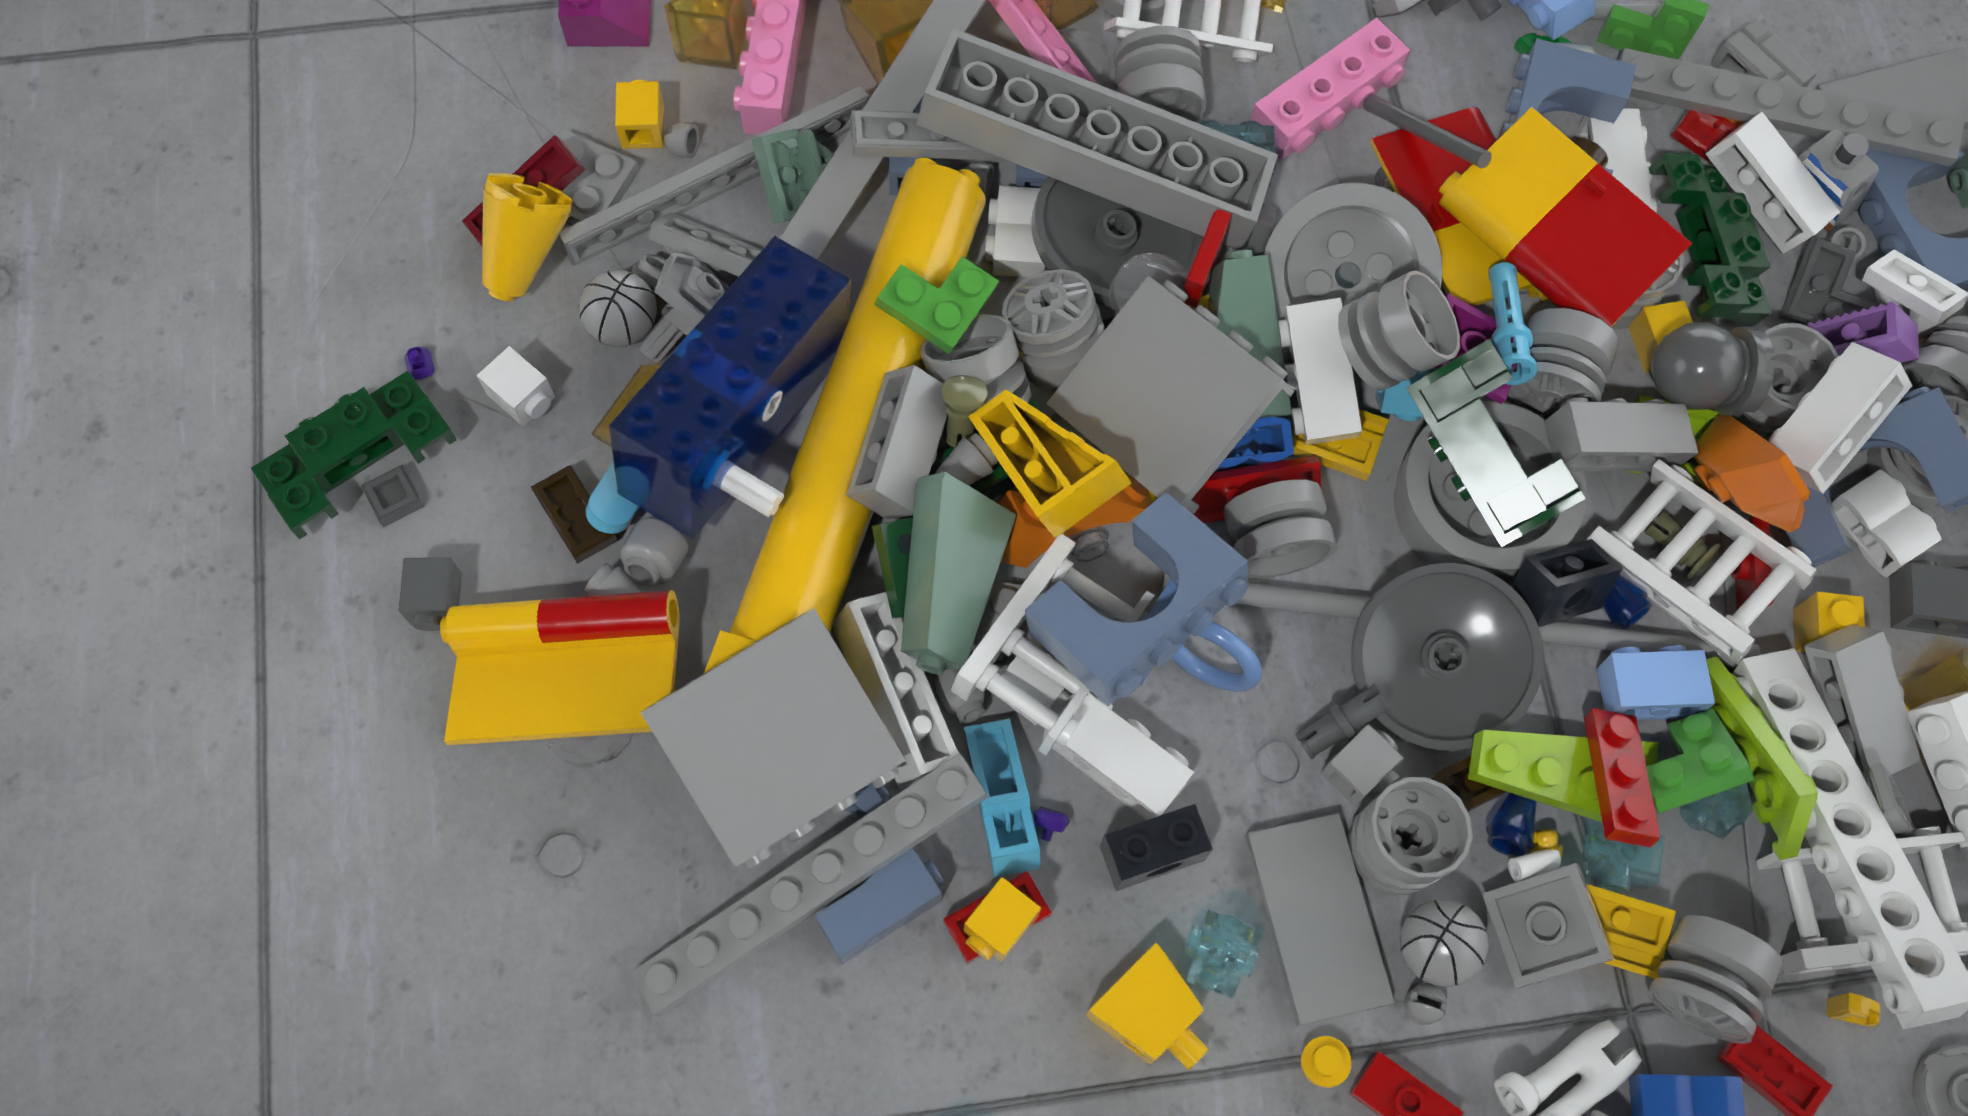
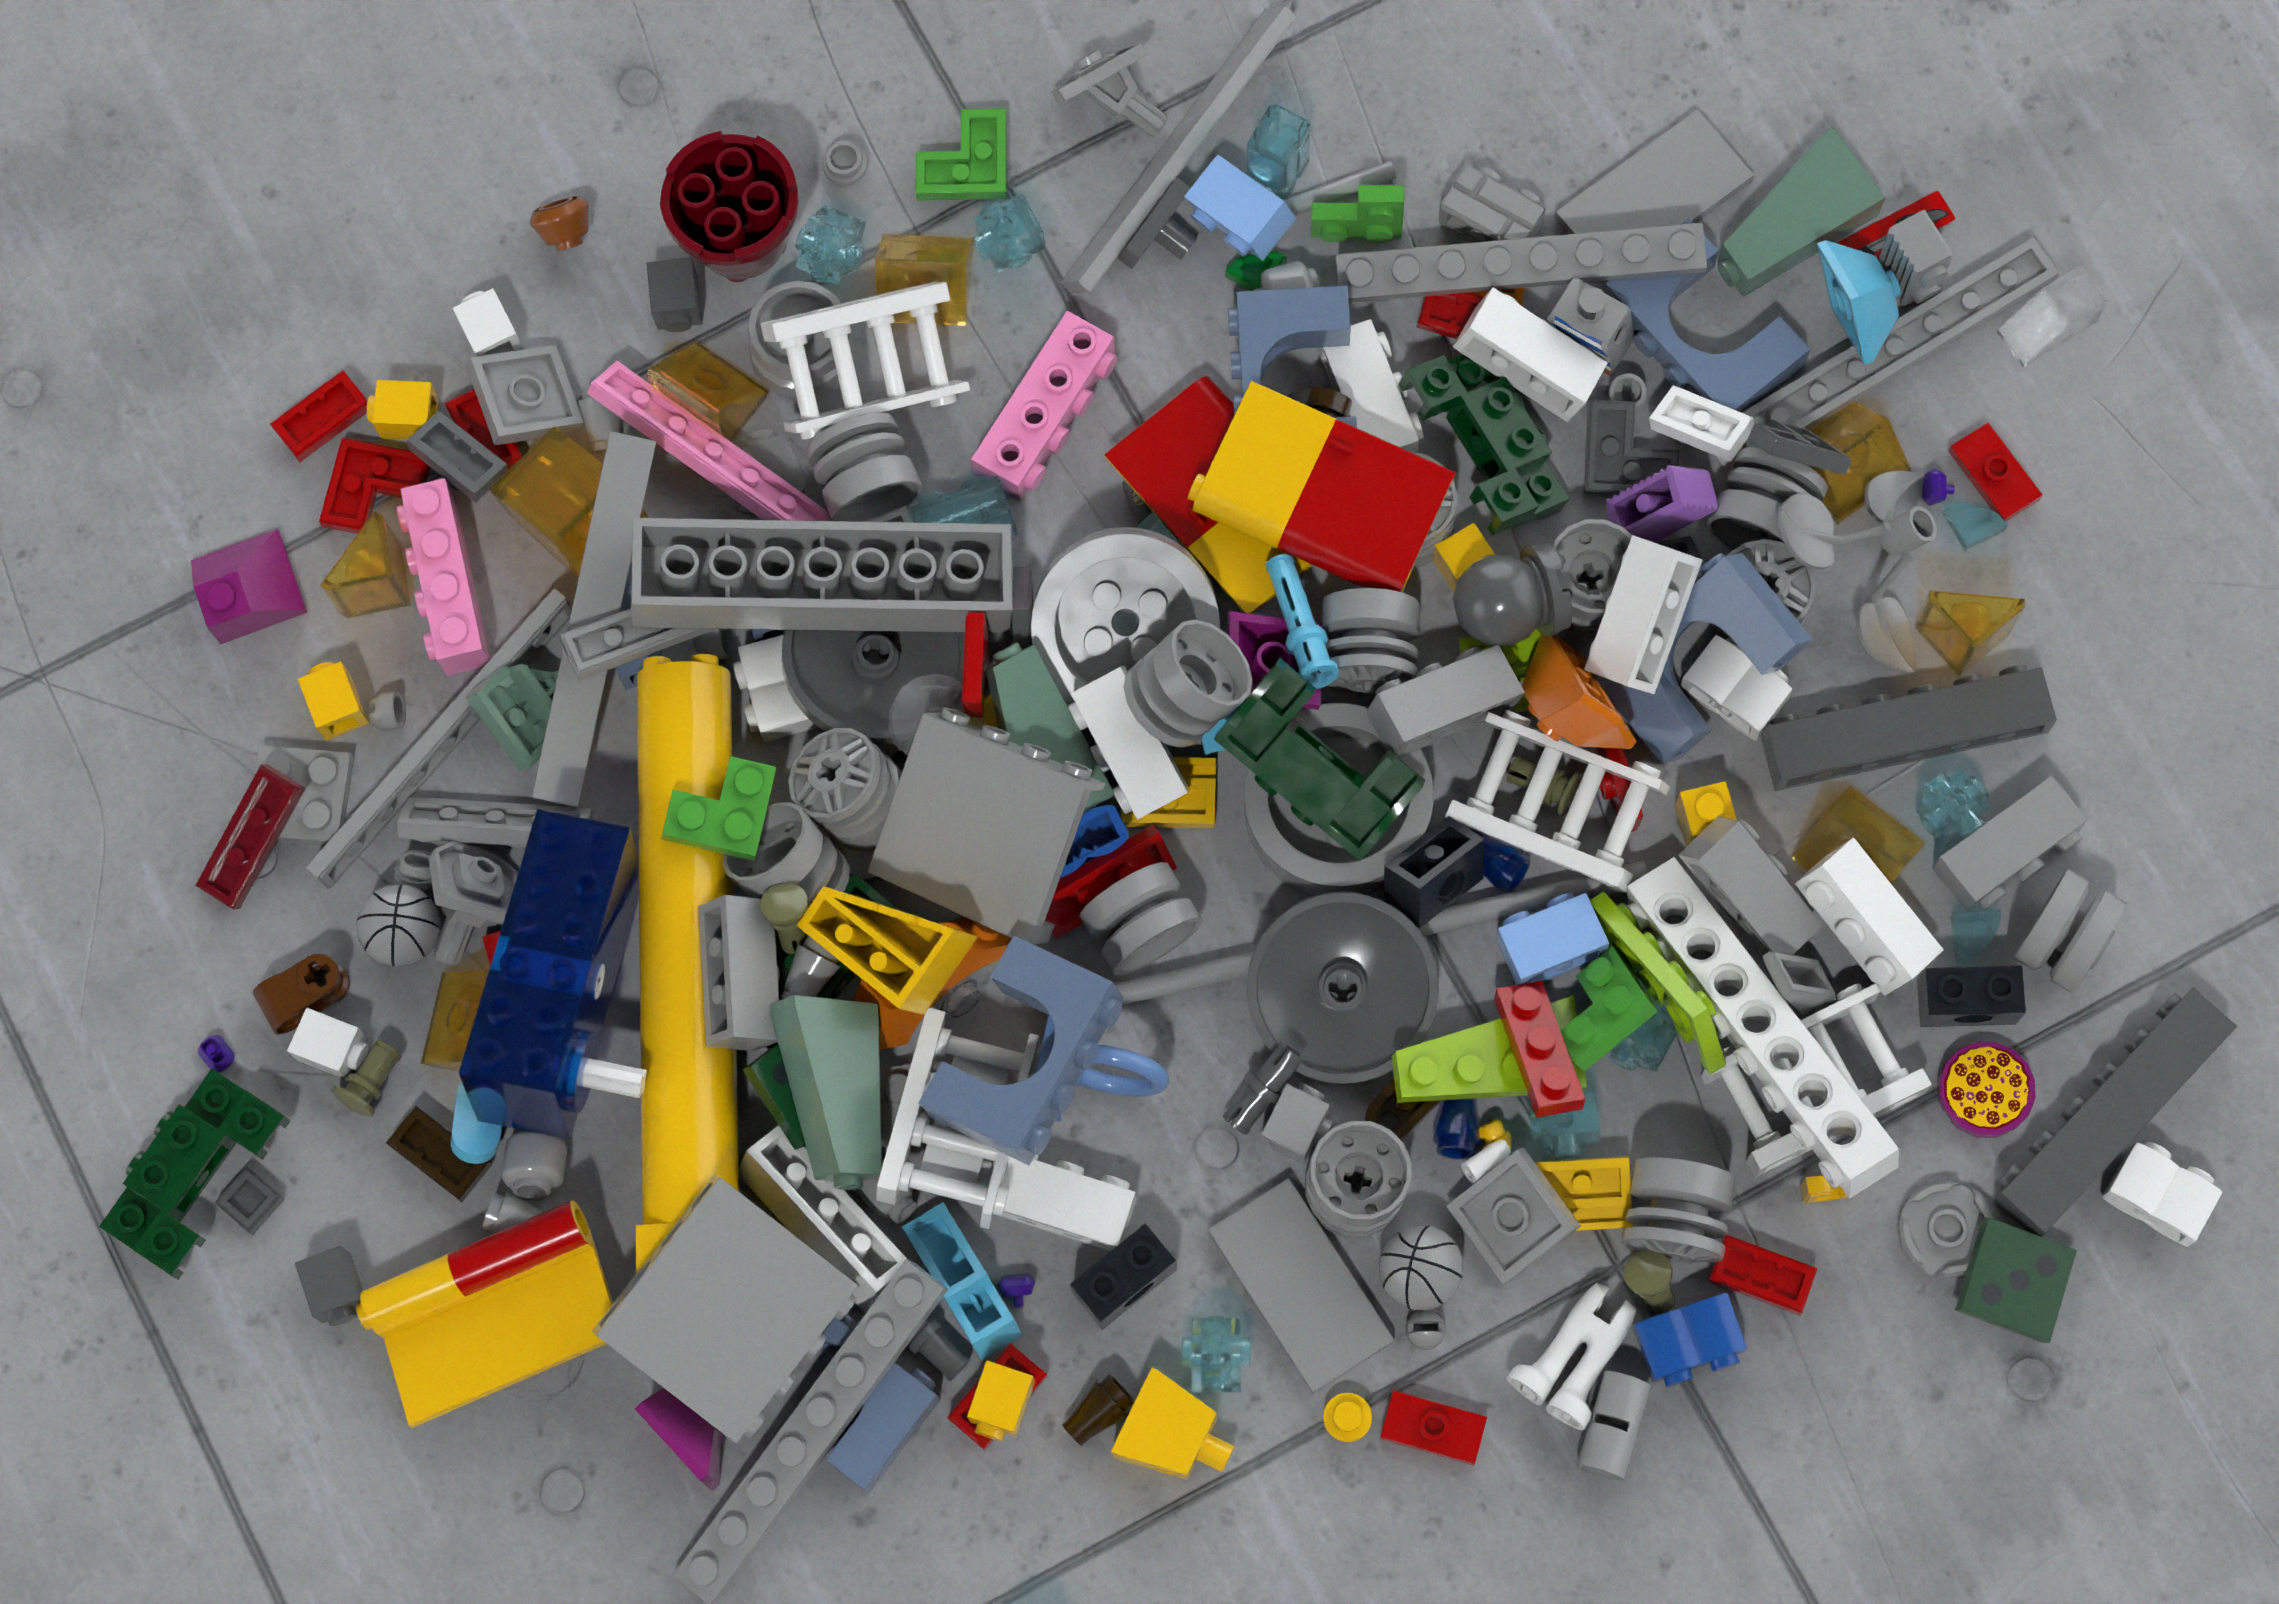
camera: 10 degrees left, 5 degrees up
(514, 328) = (289, 993): none -> reddish brown piece
(518, 232) = (267, 882): yellow cone -> none
(534, 431) = (368, 1079): none -> olive pin
(692, 843) = (686, 1434): none -> magenta slope
(957, 852) = (938, 1350): none -> dark grey pin
(1088, 965) = (1098, 1410): none -> dark brown cone
(1427, 131) = (1155, 434): dark grey bar -> none
(1671, 1036) = (1650, 1277): none -> olive pin

